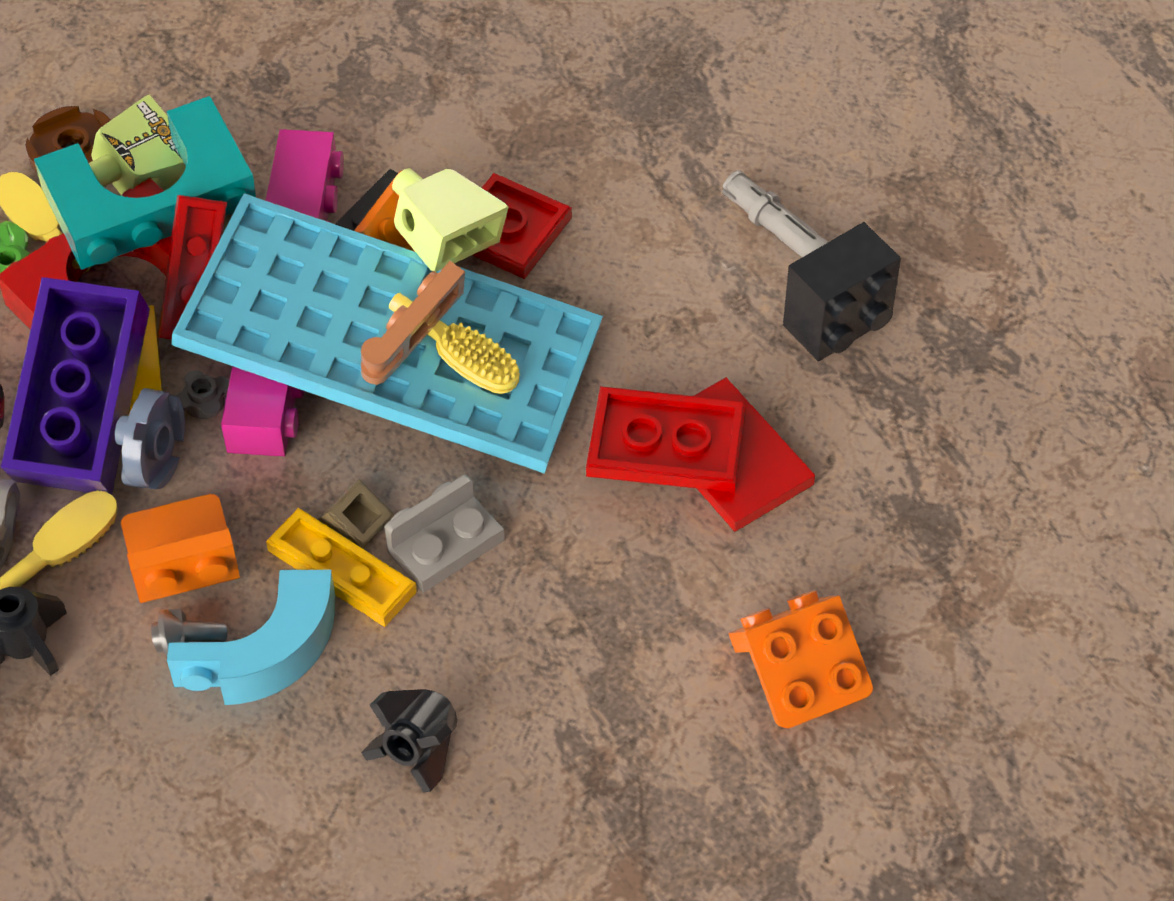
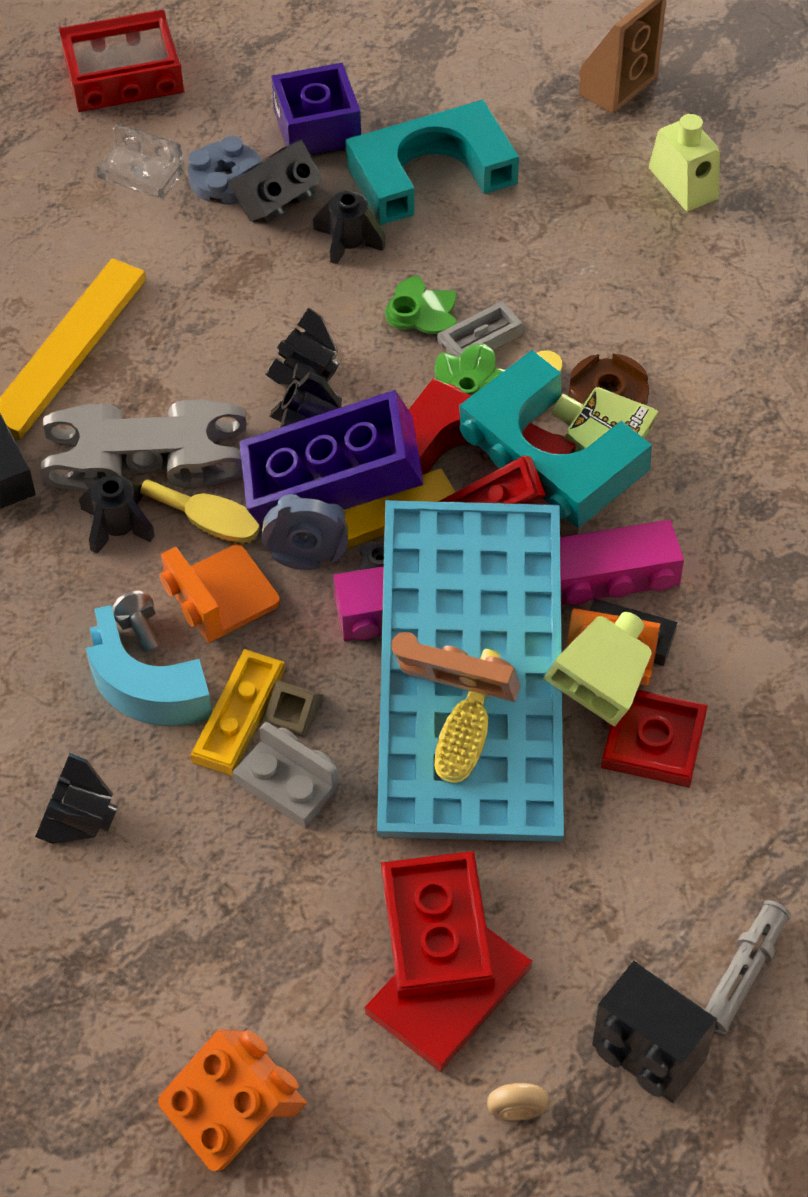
camera: 75 degrees right, 0 degrees up
(870, 422) = (518, 1101): none -> tan piece

